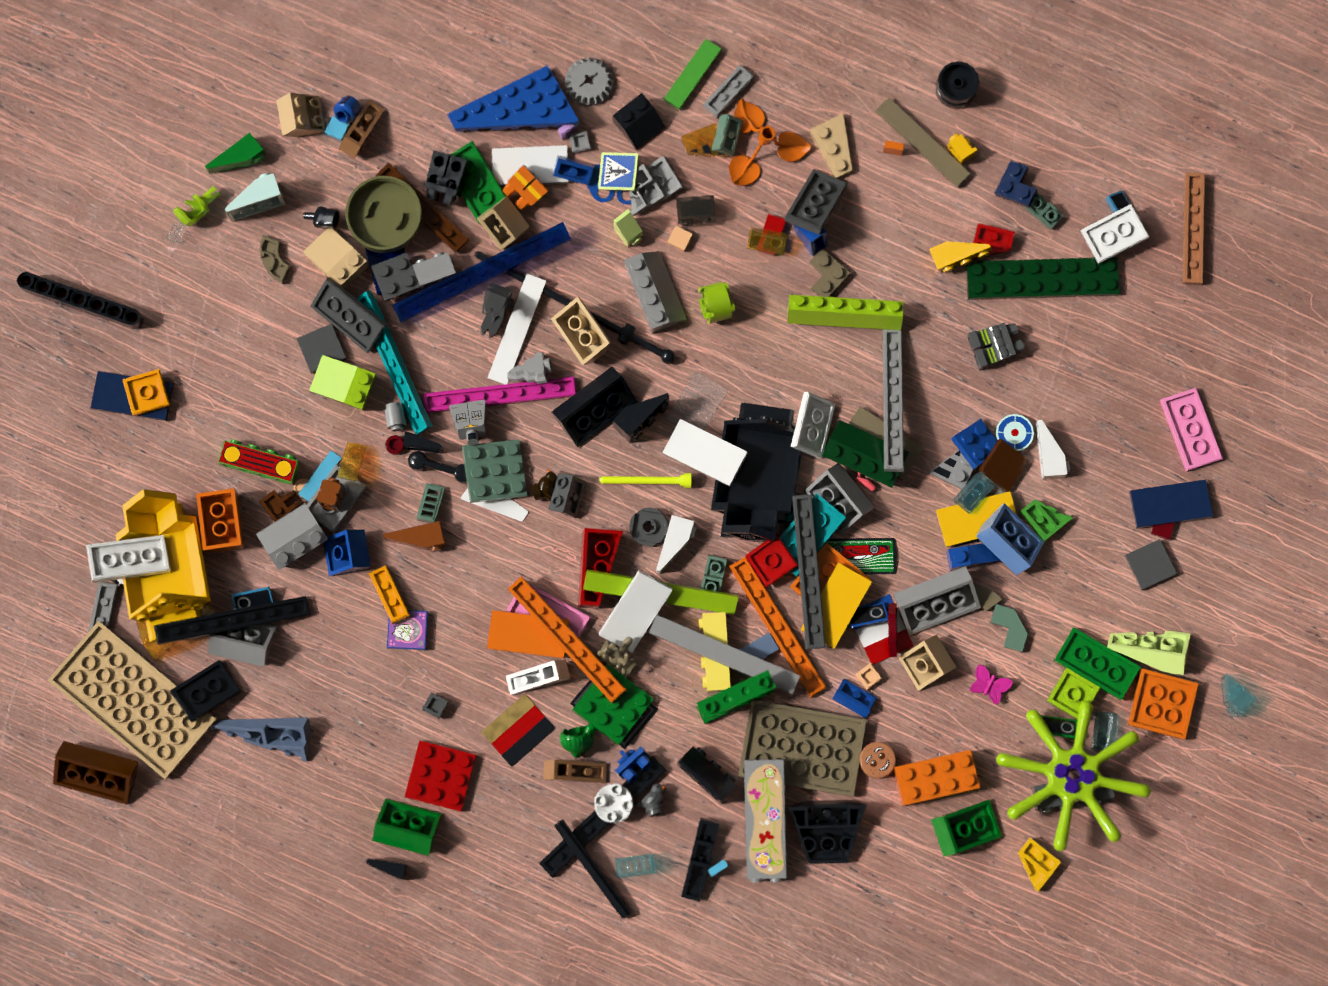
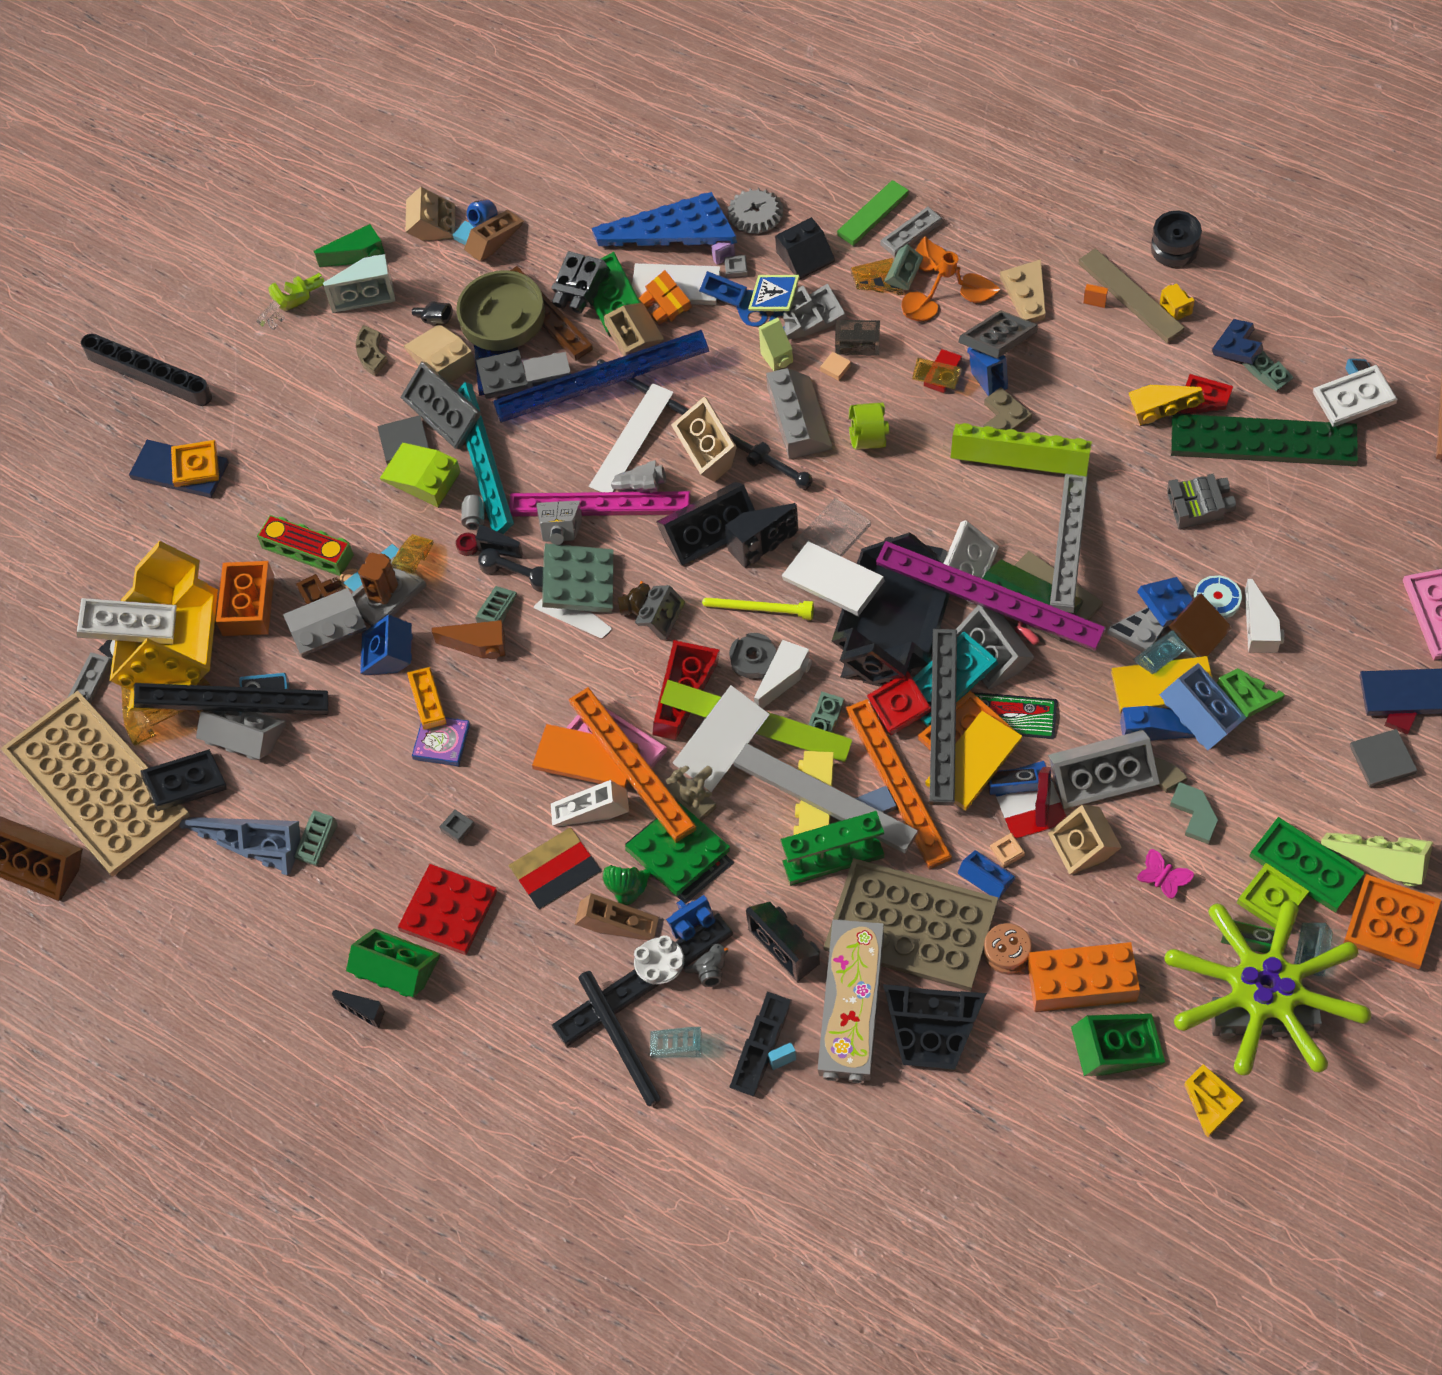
camera: 15 degrees right, 20 degrees down
(320, 711) = (313, 825): none -> sand green slope
(495, 305) = (611, 412): dark grey piece -> none
(835, 464) = (991, 596): none -> magenta plate

